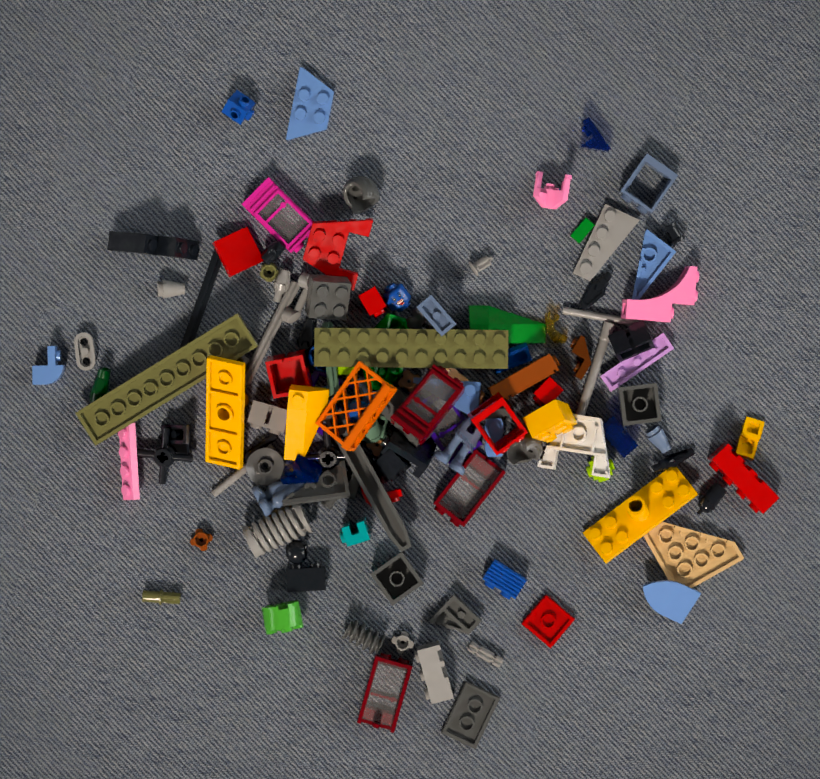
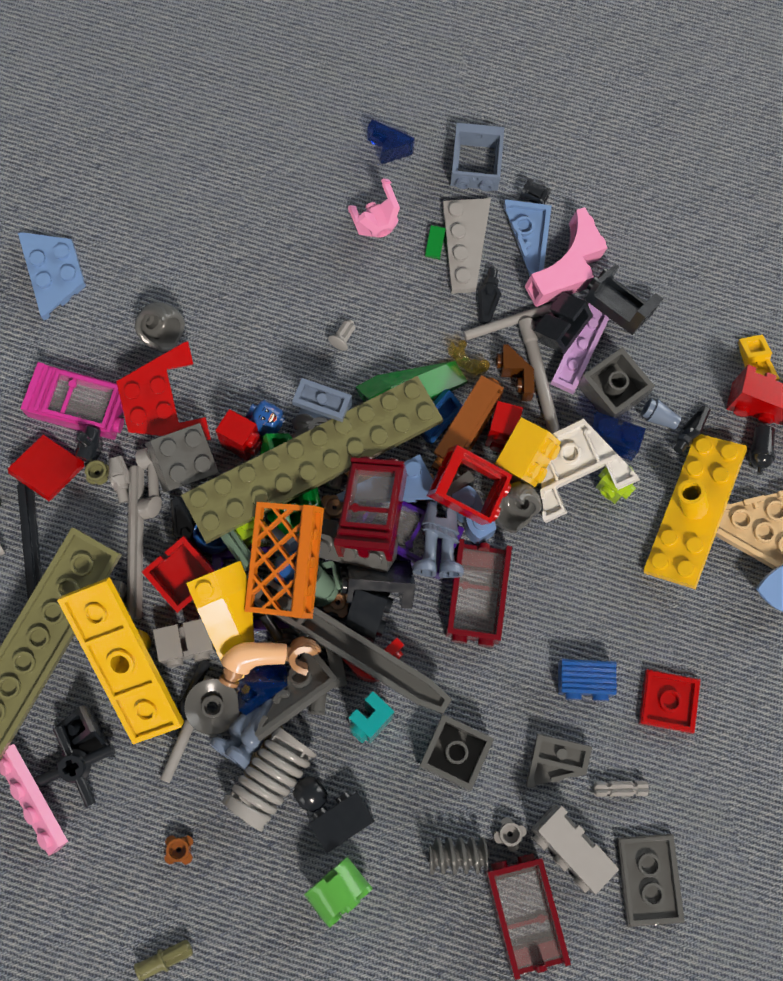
camera: 30 degrees left, 15 degrees down
(301, 451) = (248, 655): none -> piece
(679, 348) = (619, 302): none -> black panel

